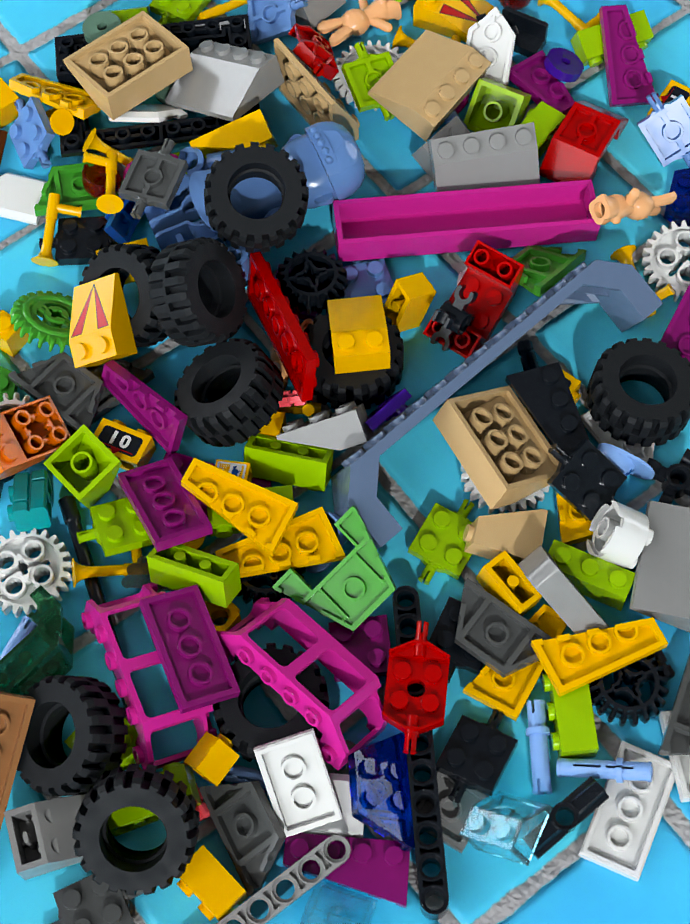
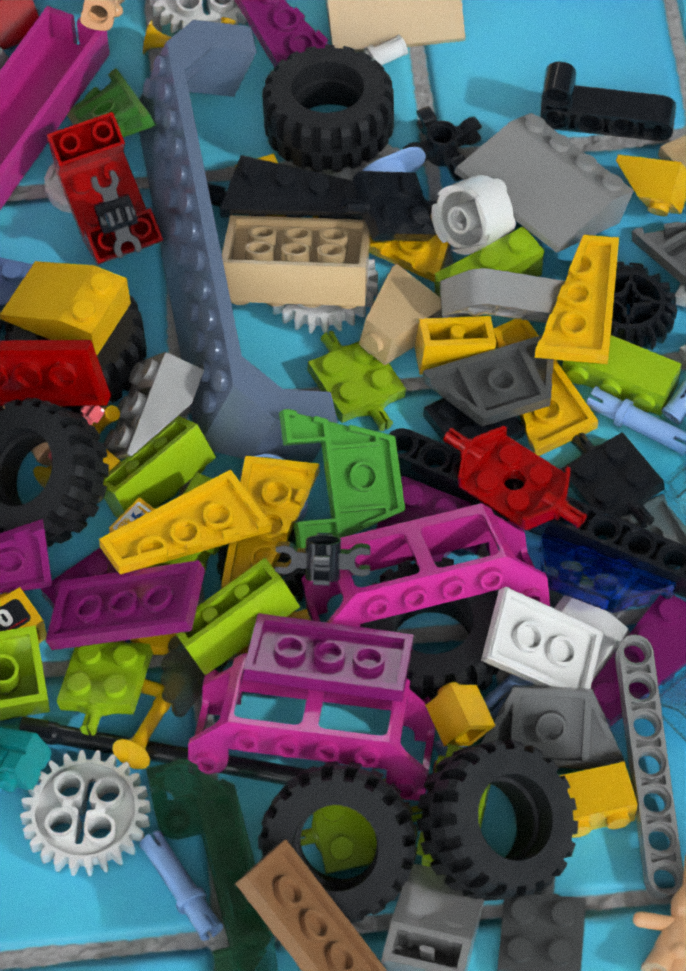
camera: 60 degrees left, 5 degrees down
(252, 599) = (323, 558): none -> black pin
(388, 409) = (171, 333): dark purple wing -> none
(409, 301) = (55, 237): yellow brick -> none

